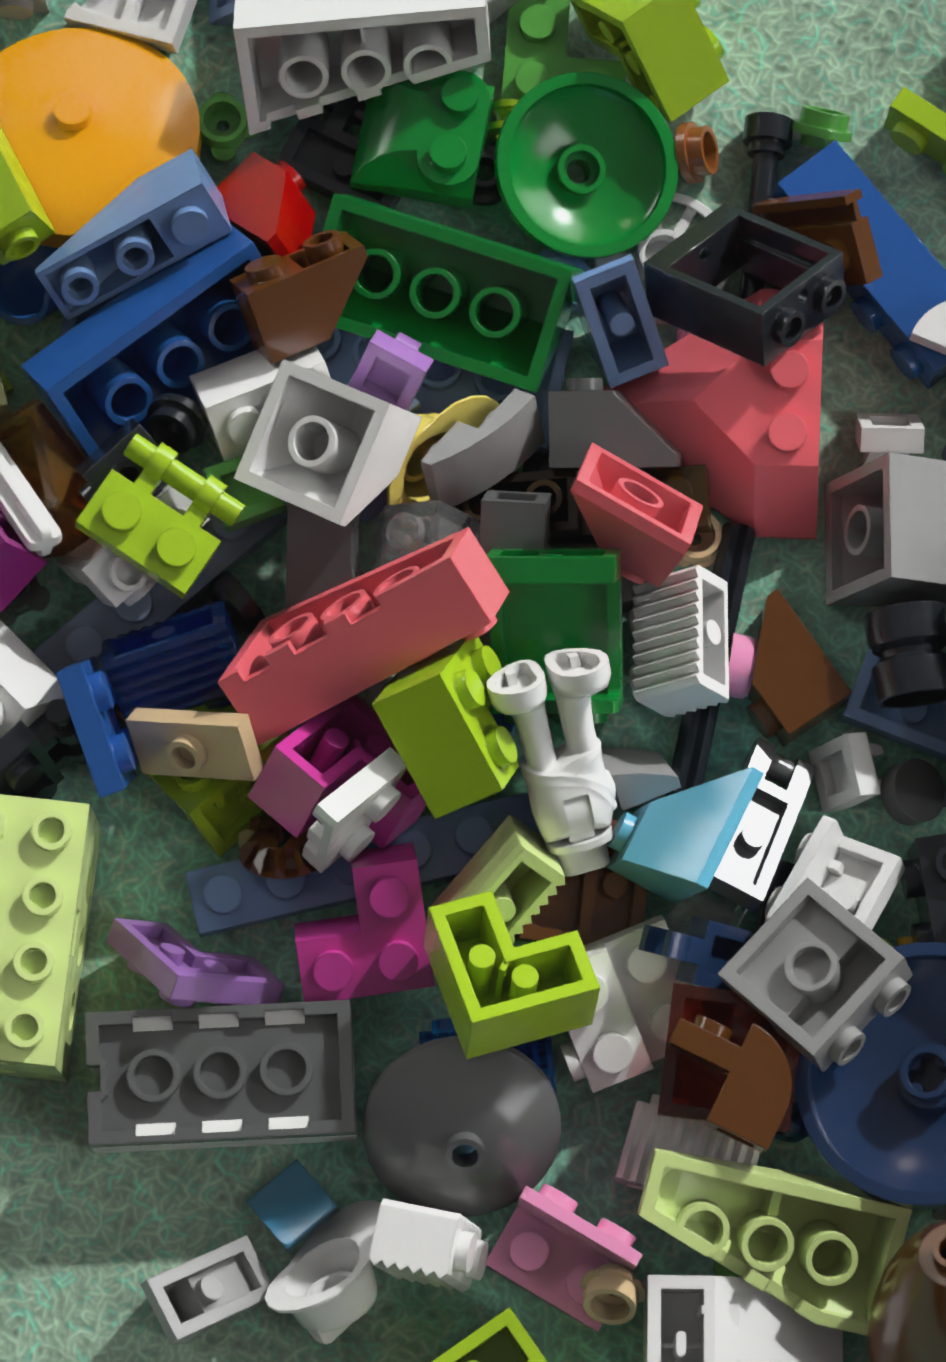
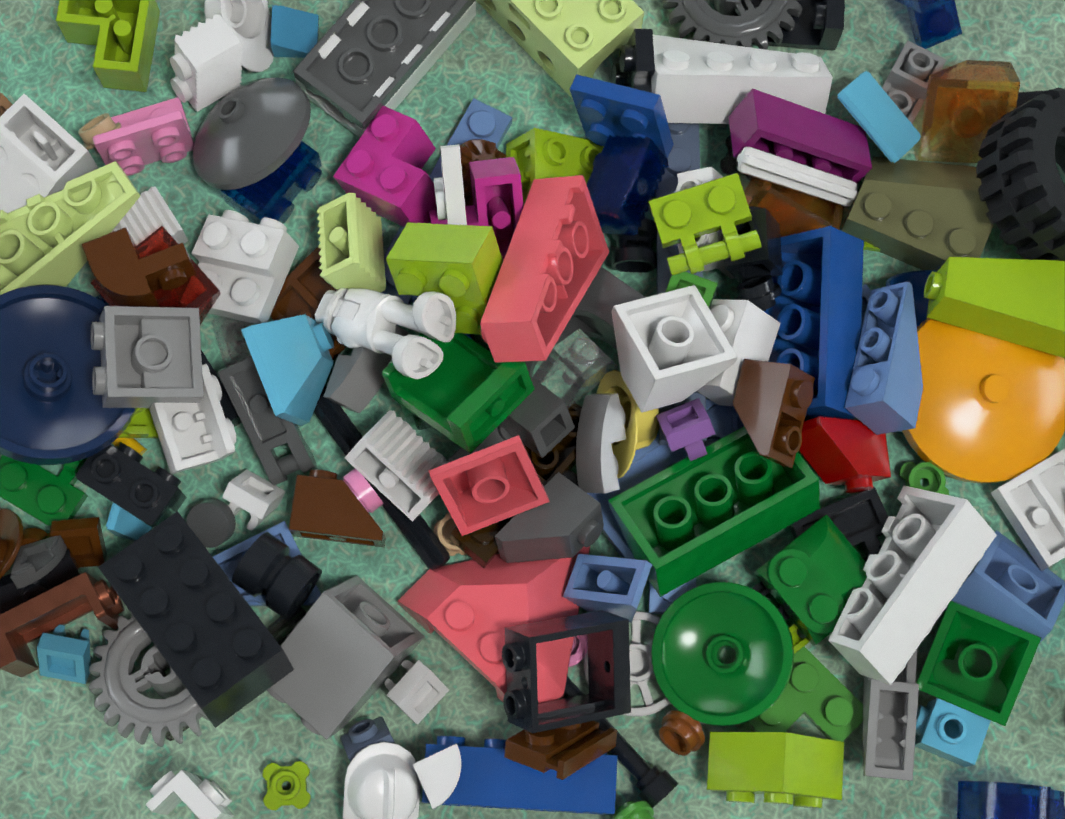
camera: 130 degrees right, 0 degrees up
(188, 974) = (450, 62): medium lavender plate -> none
(195, 744) = (565, 152): tan plate -> none
(504, 991) = (292, 177): lime brick -> none
(700, 952) = (220, 322): dark blue plate -> none

